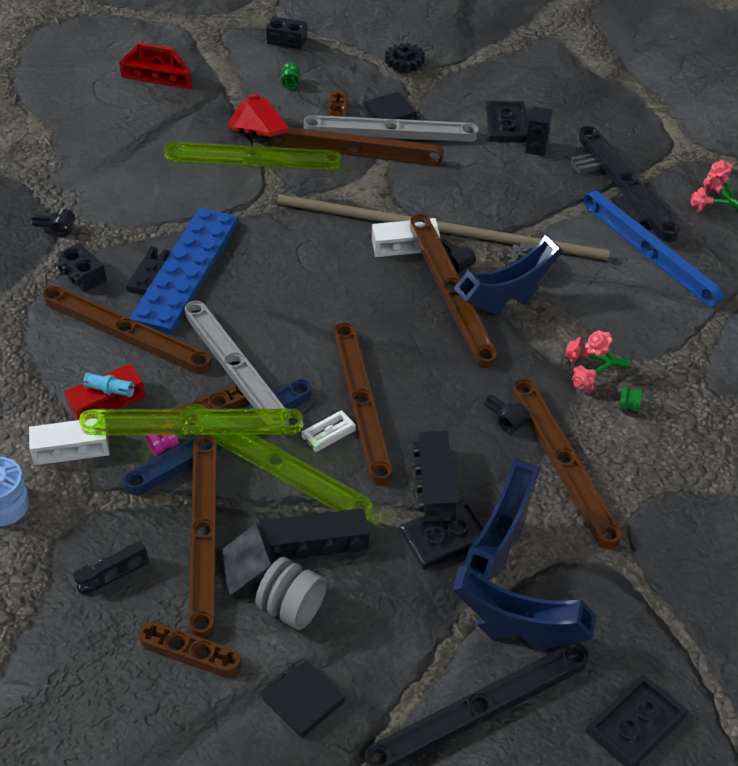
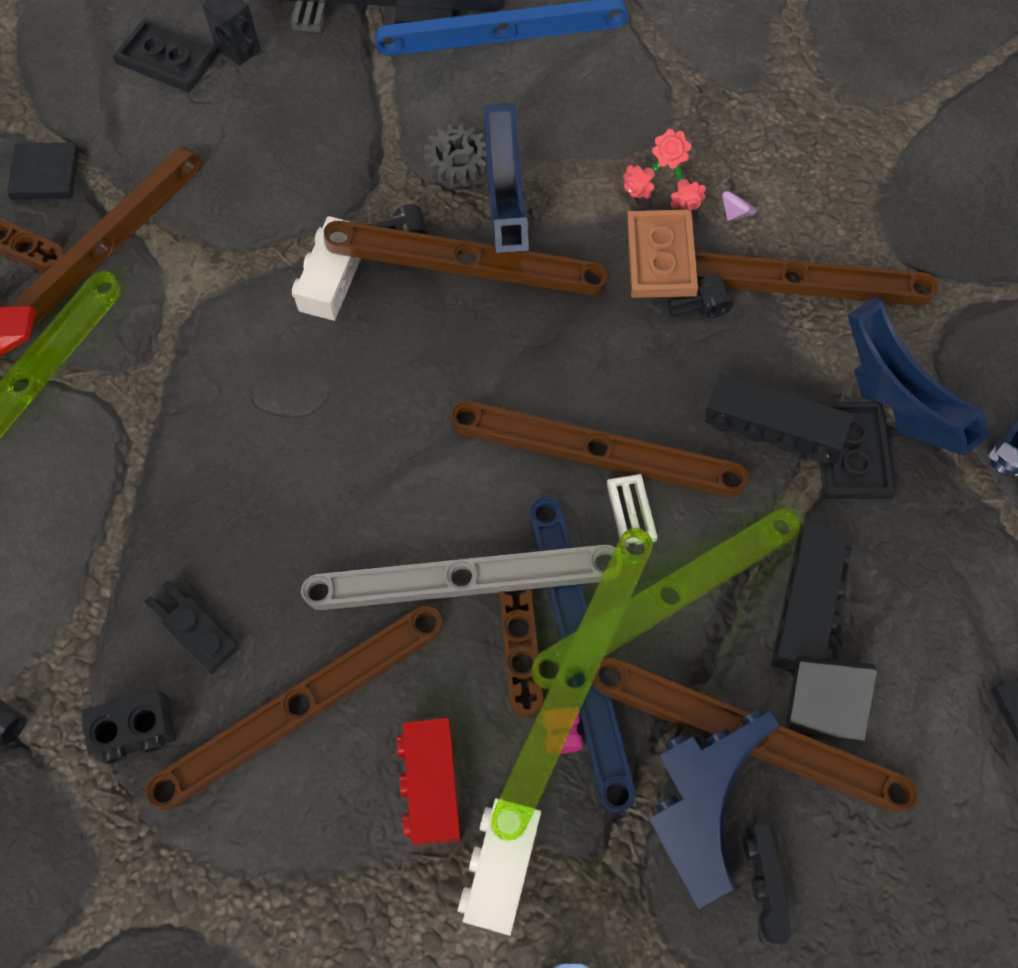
camera: 65 degrees left, 20 degrees up
(109, 384) = (445, 770): medium azure pin -> none
(134, 515) = (695, 825): none -> dark blue arch
(185, 270) = (219, 575): blue plate -> none
(187, 653) = (935, 828): reddish brown beam -> none
(291, 593) = (915, 662): light grey wheel -> none
(402, 128) = (82, 204): light grey beam -> none
(443, 227) = (307, 240): dark tan piece -> none
(522, 375) = (661, 253): none -> nougat plate
(601, 409) = (736, 206): none -> lavender slope
(630, 399) = (738, 169): green wheel -> none

